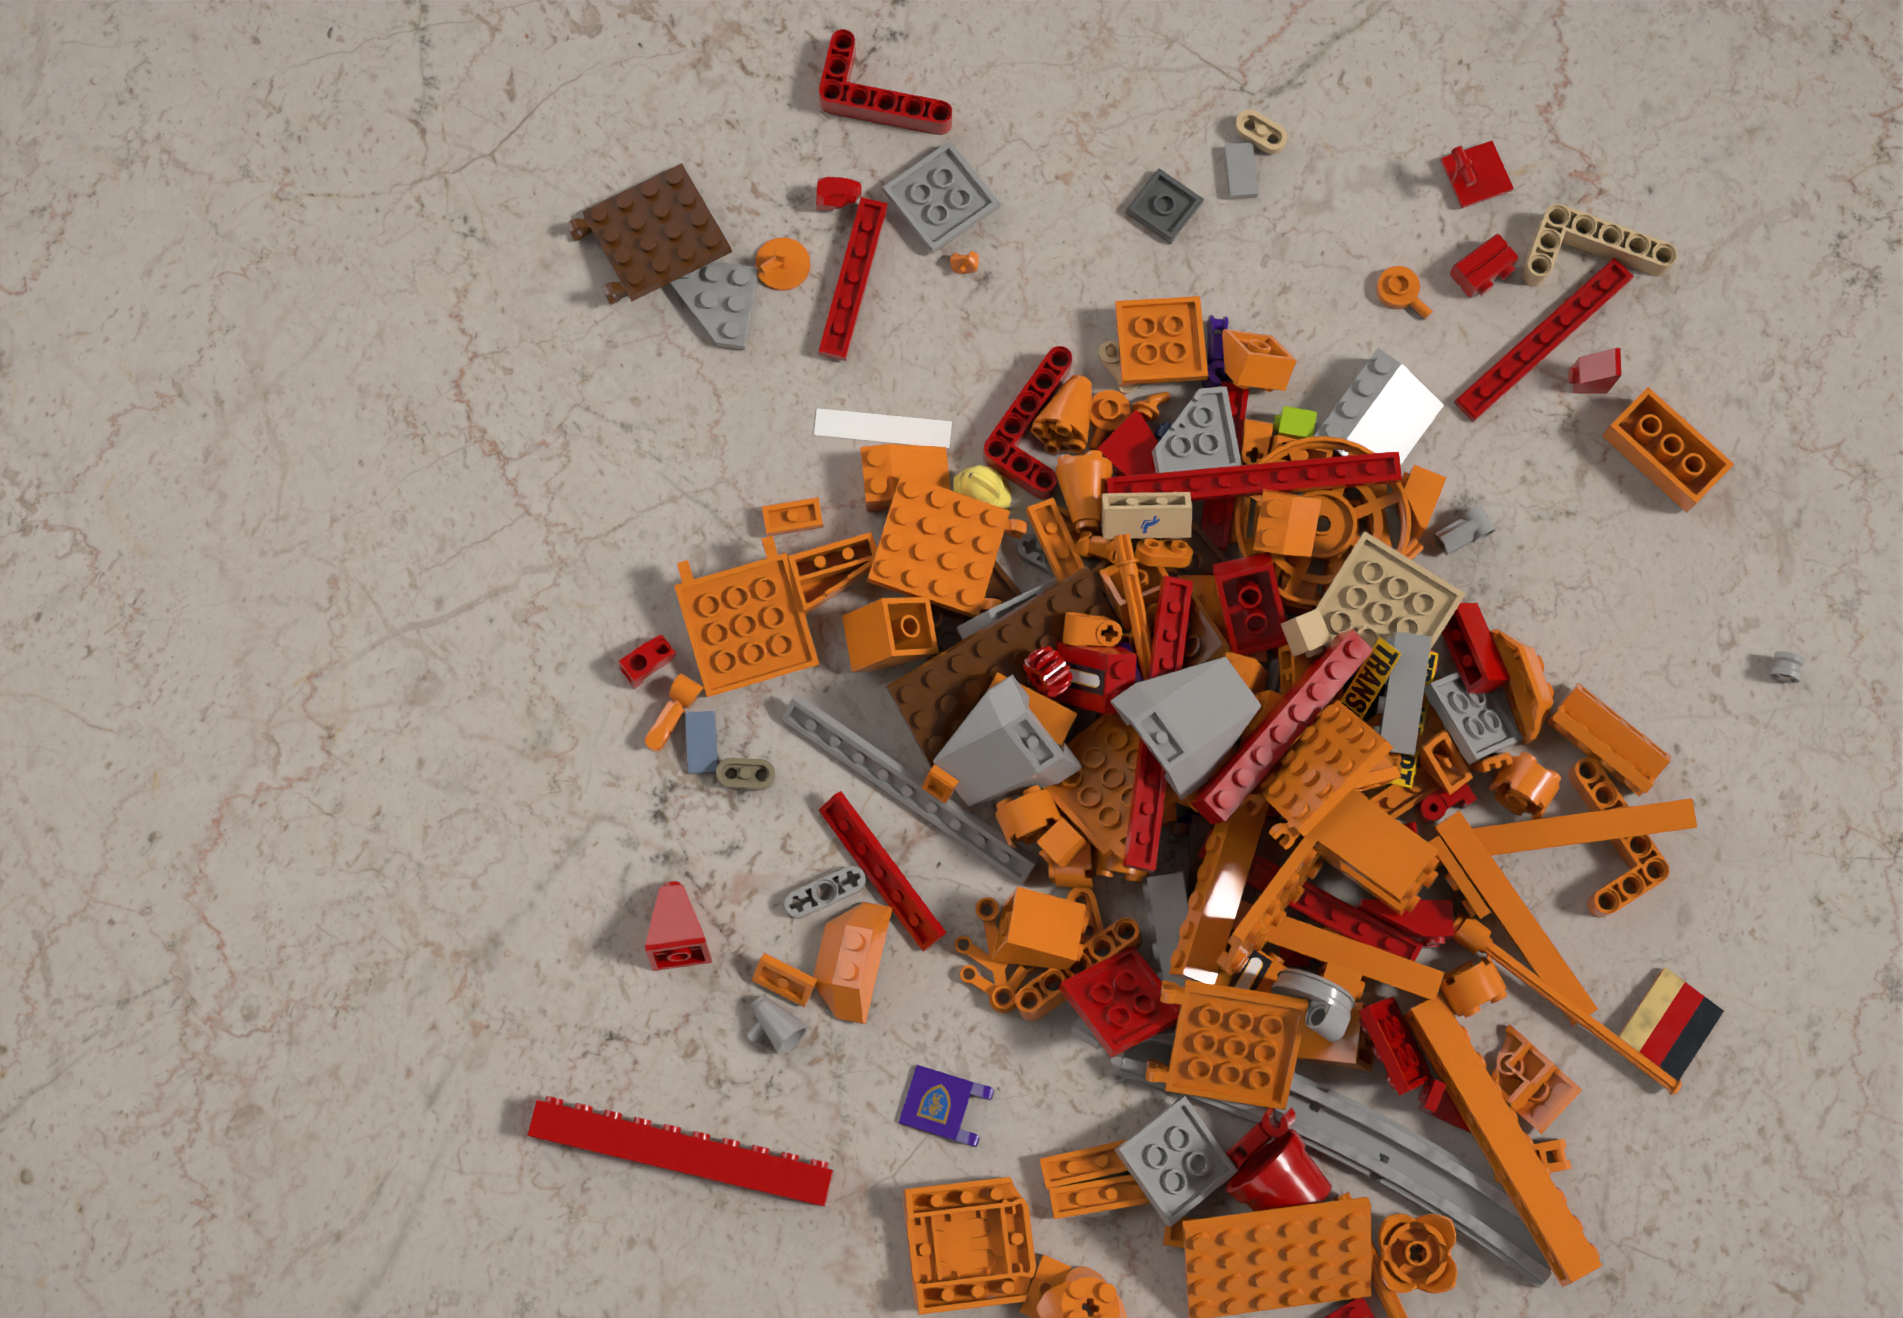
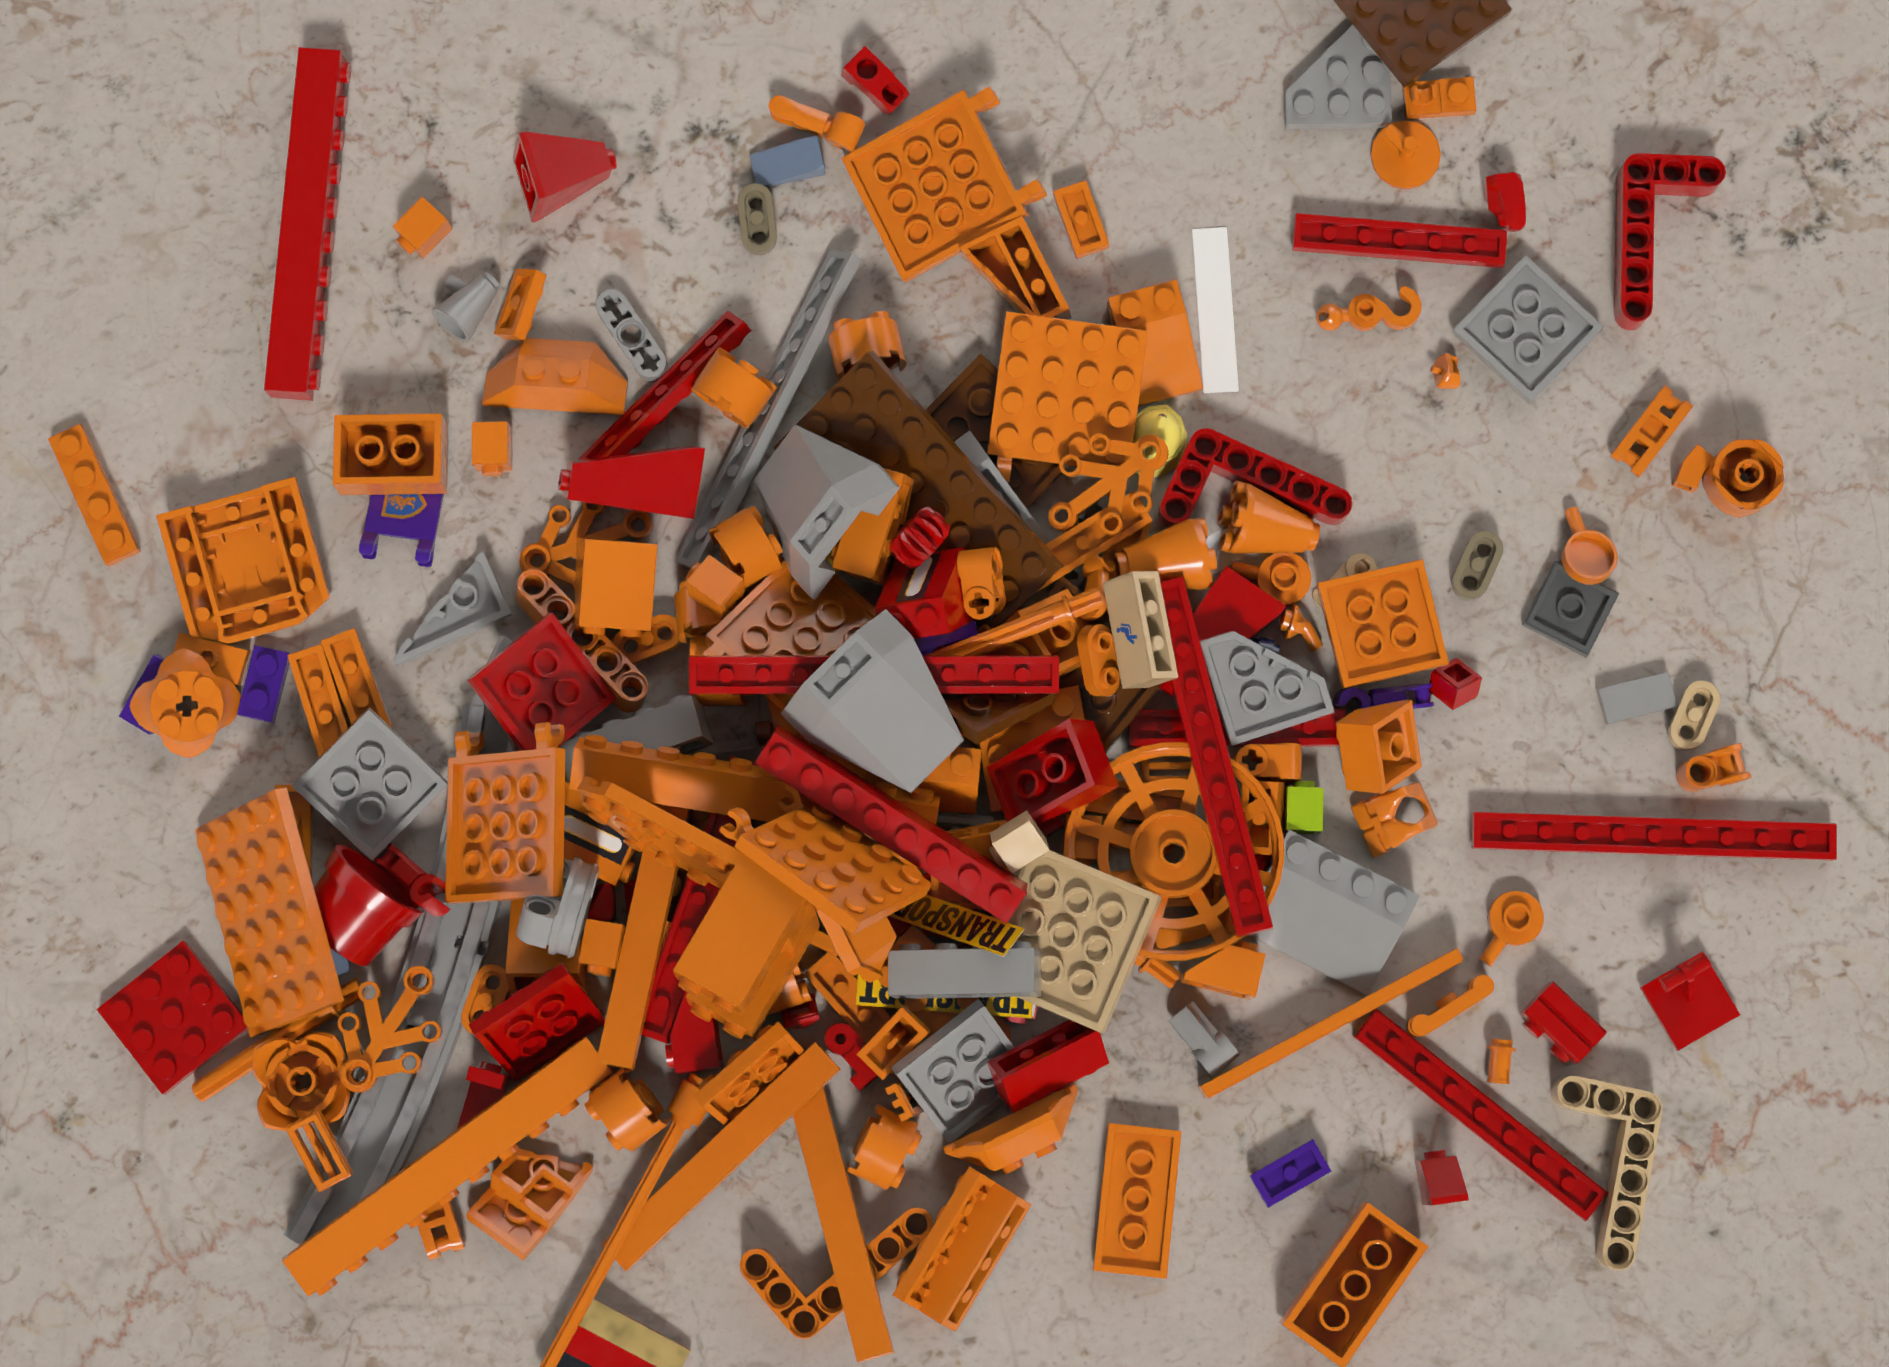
camera: 85 degrees right, 5 degrees up
(704, 1054) = (421, 228): none -> orange brick
(742, 229) = (1439, 98): none -> orange plate
(873, 703) = (856, 338): none -> orange brick
(889, 810) = (733, 388): none -> orange brick
(890, 633) = (948, 354): orange slope -> none
(897, 1105) = (390, 454): none -> orange brick
(903, 1020) = (492, 447): none -> orange brick
(907, 311) = (1367, 311): none -> orange piece
(940, 784) = (771, 439): orange tile -> none
(955, 899) = (641, 481): none -> red slope
(1017, 520) = (1113, 479): none -> orange plant
(1035, 1061) = (468, 607): none -> light grey wing
(1036, 122) = (1651, 430): none -> orange plate
(1070, 99) = (1691, 469): none -> orange piece
(1073, 1244) = (264, 684): none -> dark purple plate
(1085, 61) = (1764, 479): none -> orange brick
(1124, 264) = (1476, 566): none -> dark tan plate
(1125, 184) = (1588, 554): none -> orange piece
(1213, 298) = (1455, 684): none -> red slope
(1286, 523) = (1156, 800): orange slope -> none
(1304, 120) = (1719, 767): none -> orange piece
(1312, 371) = (1382, 826): none -> orange piece
(1349, 178) = (1654, 836): none -> red plate
(1364, 1091) = (481, 997): none -> orange plate
(1388, 1175) = (385, 1034): none -> orange plant
(1455, 1252) = (332, 1144): none -> orange tile
(1462, 343) = (1451, 1006): none -> orange plate
(1464, 434) = (1331, 1023): none -> orange tile
(1506, 316) = (1500, 1061): none -> orange pin
(1575, 484) = (1290, 1173): none -> dark purple plate
(1584, 601) = (1137, 1200): none -> orange plate

